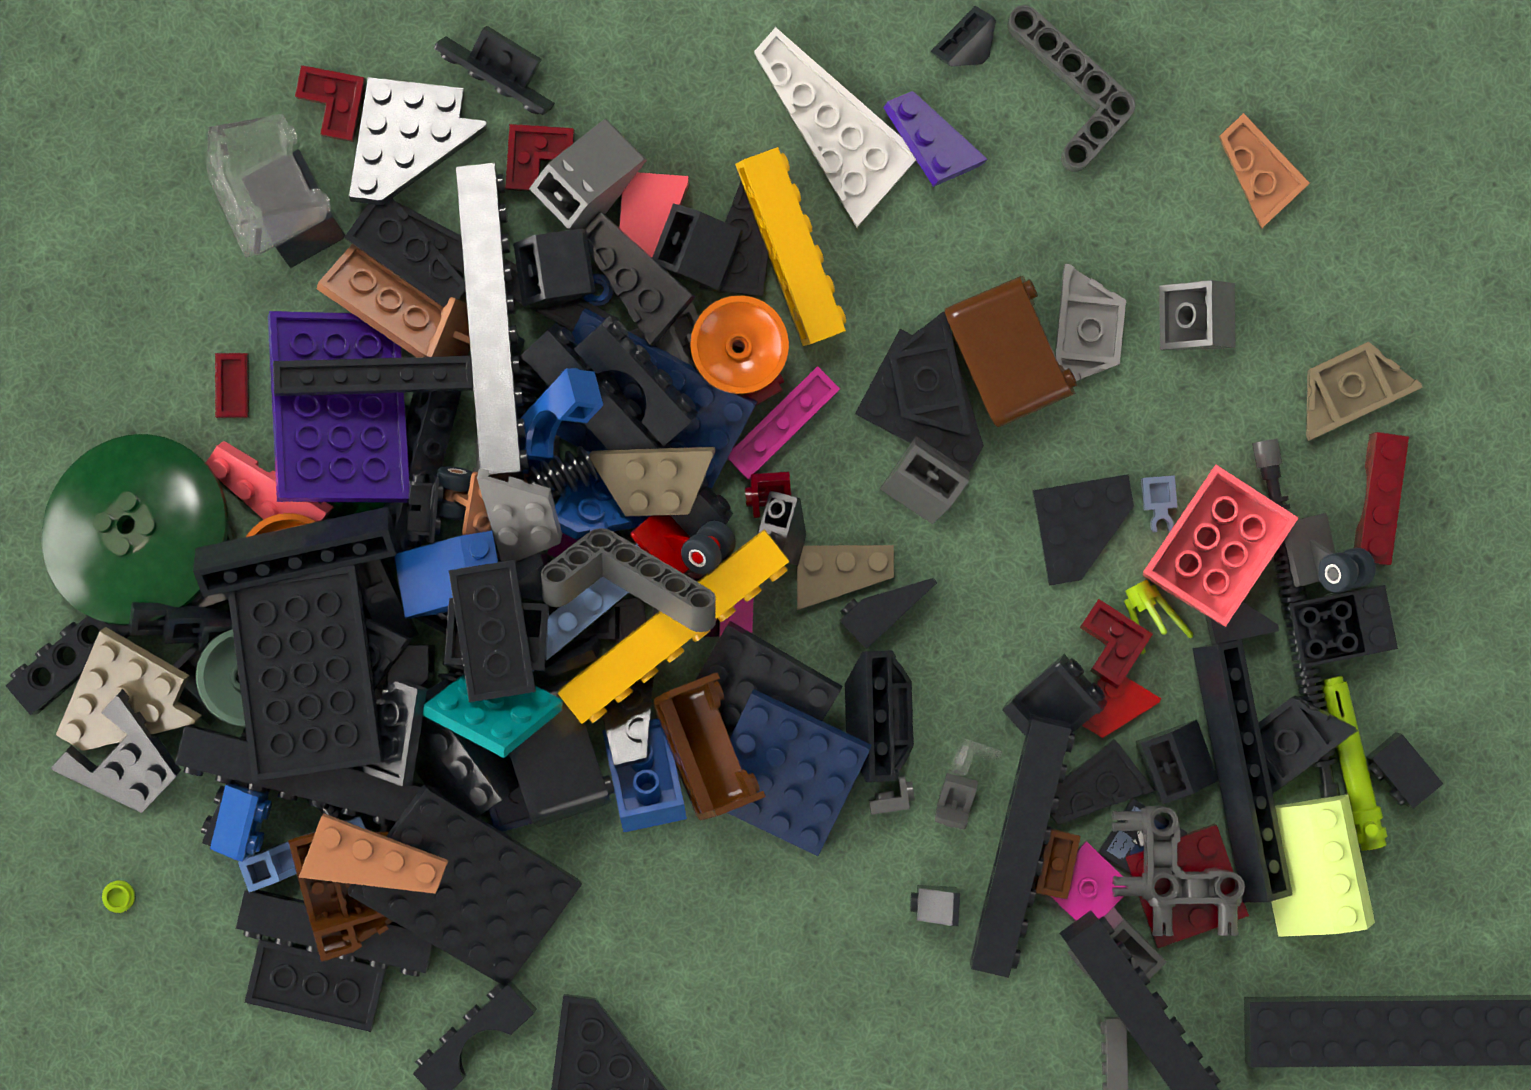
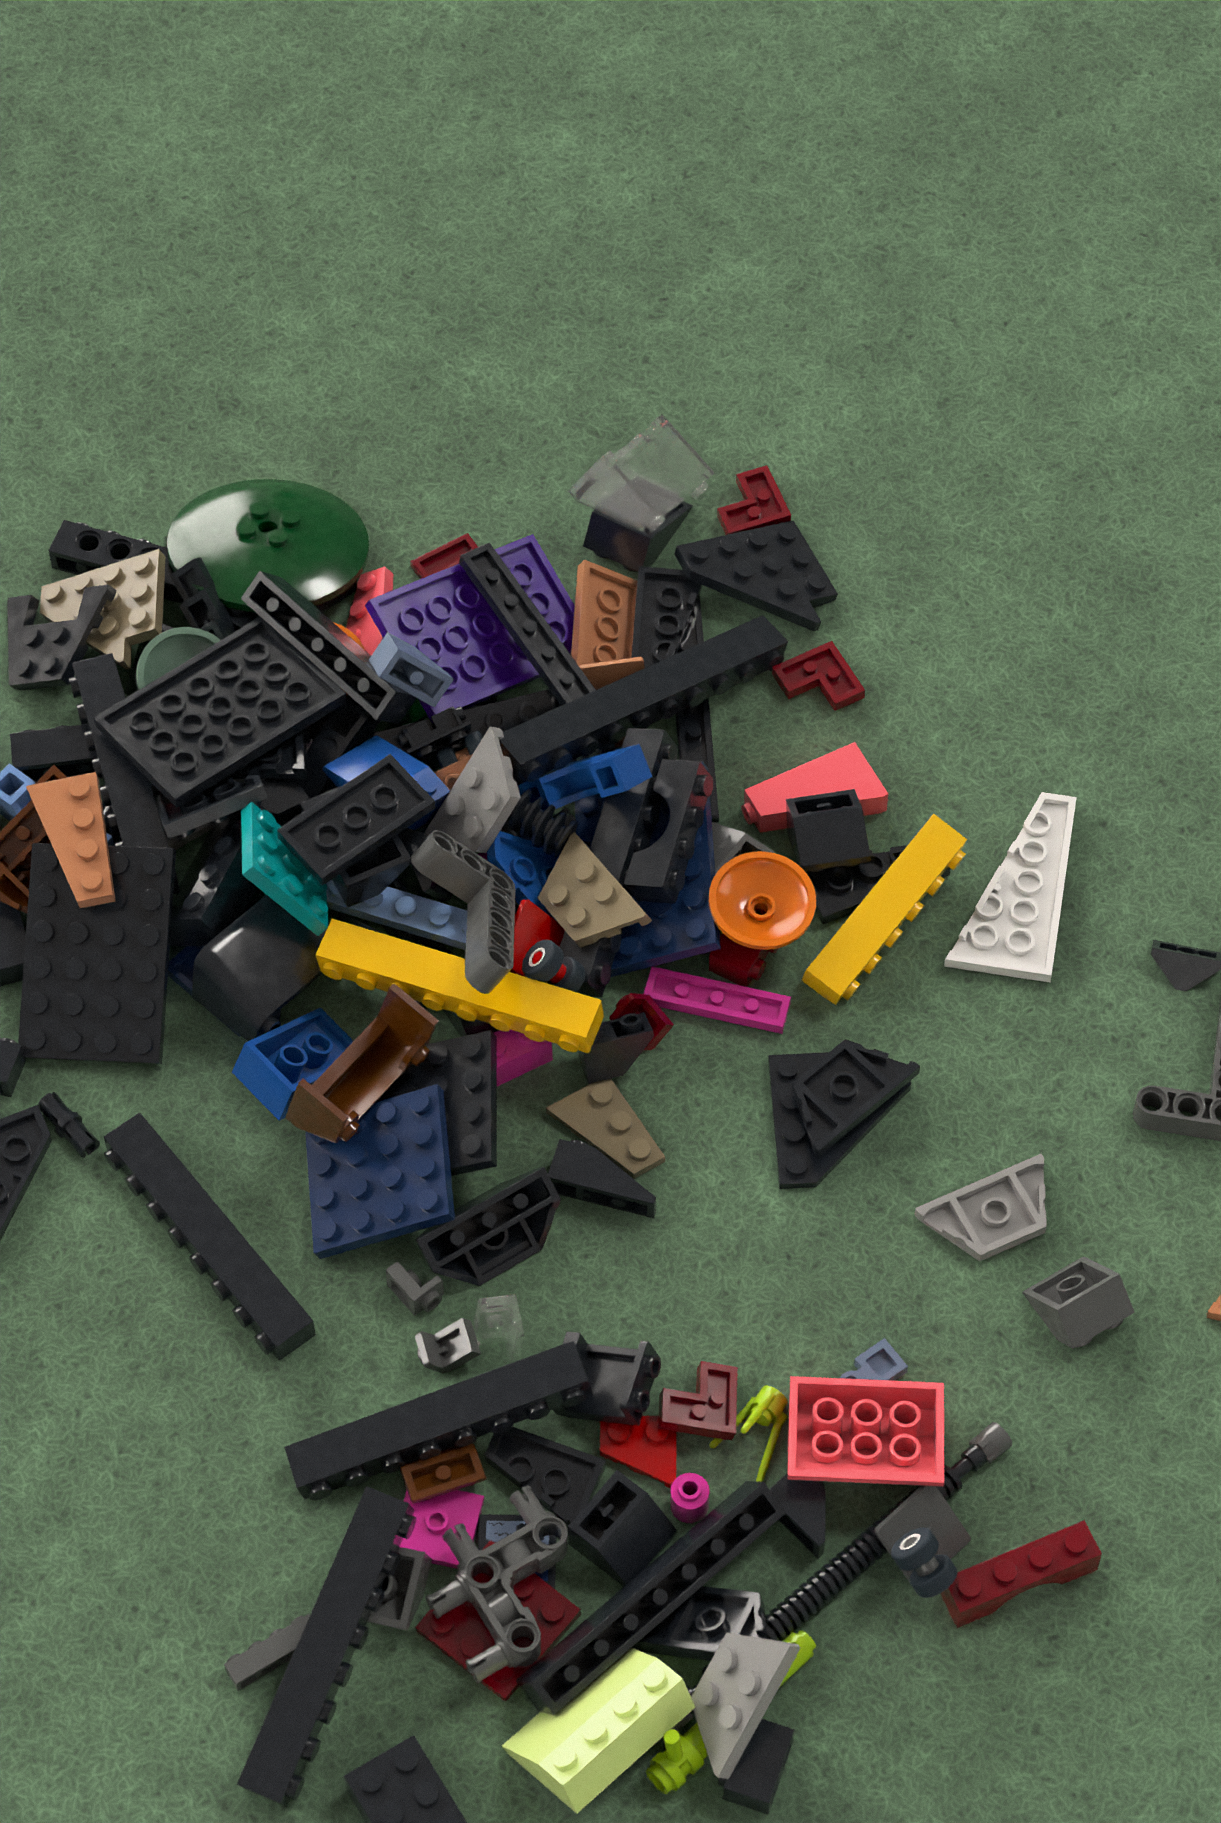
camera: 60 degrees right, 30 degrees down
(240, 821) = (50, 742): slope -> none
(364, 503) = (410, 670): none -> sand blue slope
(501, 64) = (879, 609): black bracket -> none
(554, 268) = (725, 728): black slope -> none
(588, 176) = (826, 715): dark grey slope -> none
(591, 979) = (68, 1124): none -> black pin
(607, 294) = (730, 779): blue plate -> none
(629, 725) = (338, 1014): black wing -> none
(641, 282) = (765, 794): black wing -> none
(754, 926) = (209, 1237): none -> black brick
(926, 481) = (747, 1142): dark grey slope -> none
(932, 140) = (1072, 980): wing -> none
(936, 904) = (333, 1385): slope -> none
(1009, 351) = (915, 1142): reddish brown windscreen -> none
(1079, 523) = (800, 1312): black plate -> none
(1173, 694) = (689, 1497): none -> dark pink brick
(1343, 625) = (866, 1609): black slope -> none
(1352, 387) = (1113, 1487): dark tan wing -> none
(1367, 764) = (737, 1694): none -> light grey wing

